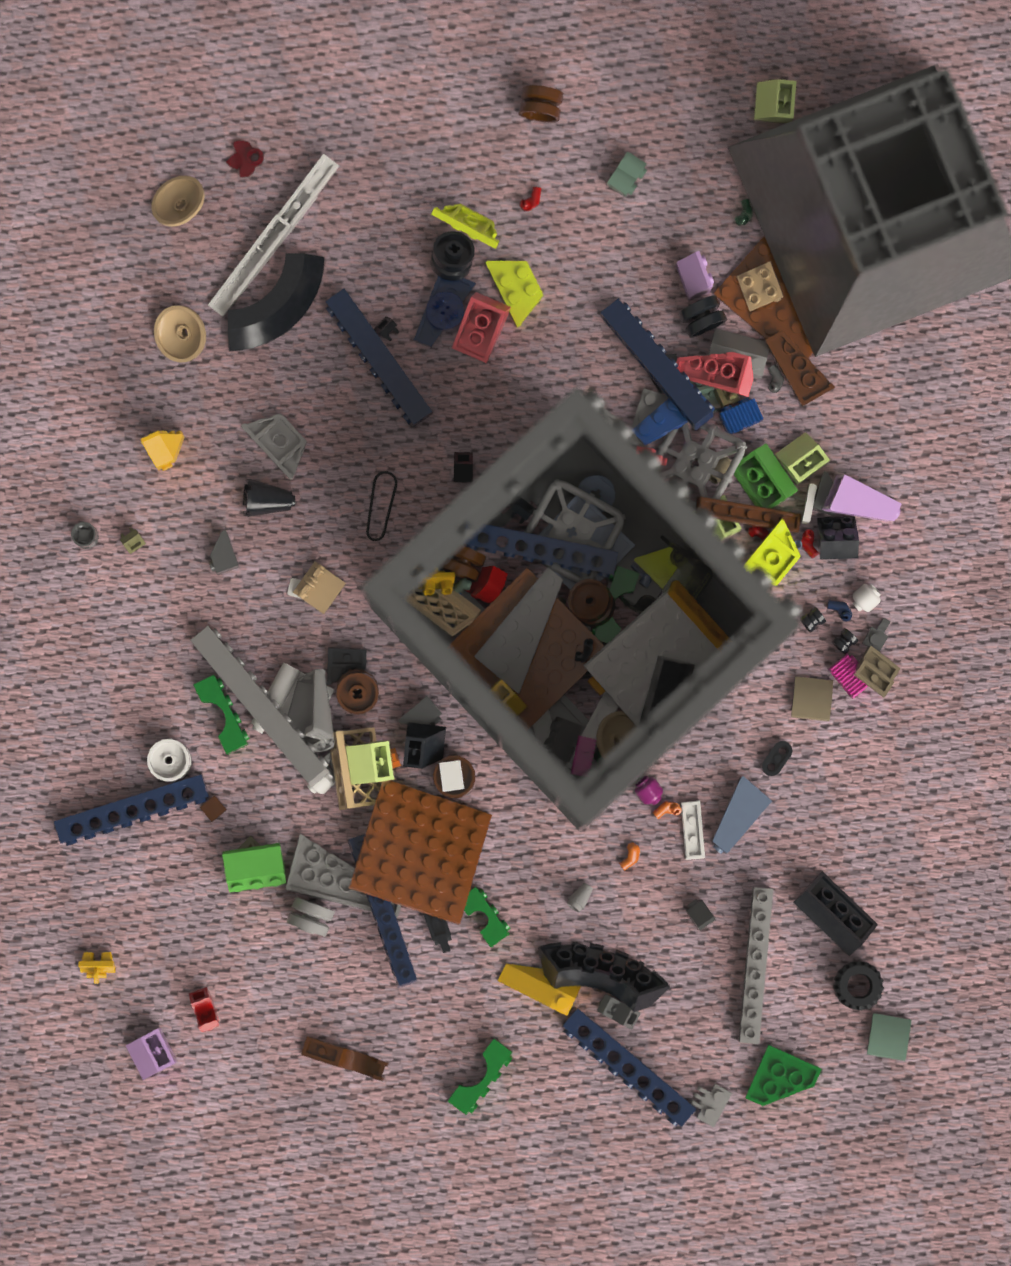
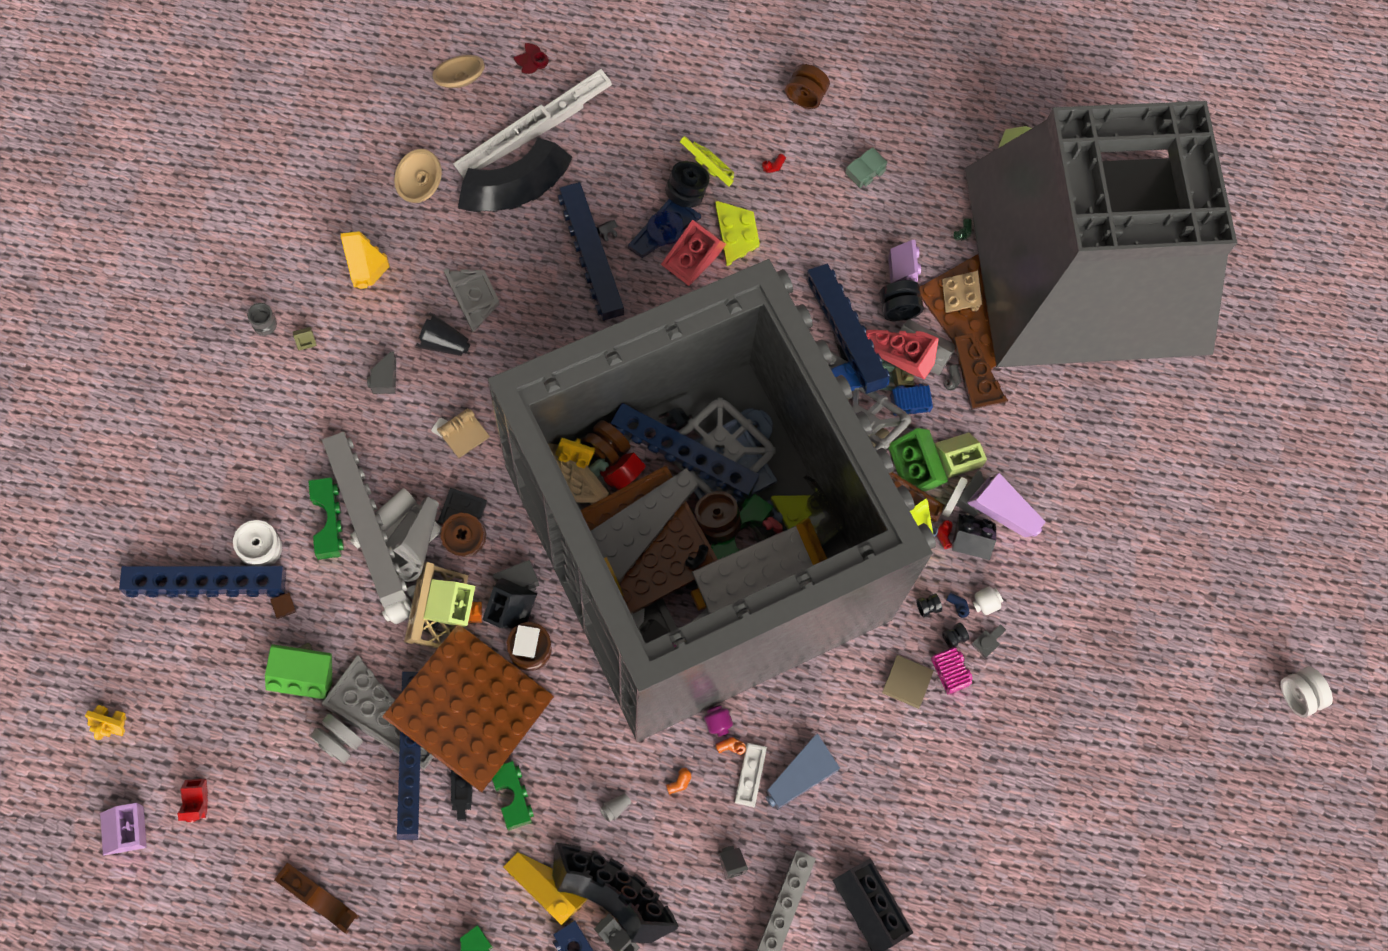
camera: 10 degrees right, 15 degrees down
(643, 588) = (773, 523): none -> coral arm
(776, 758) = (855, 729): black plate -> none
(876, 671) = (980, 672): dark tan slope -> none

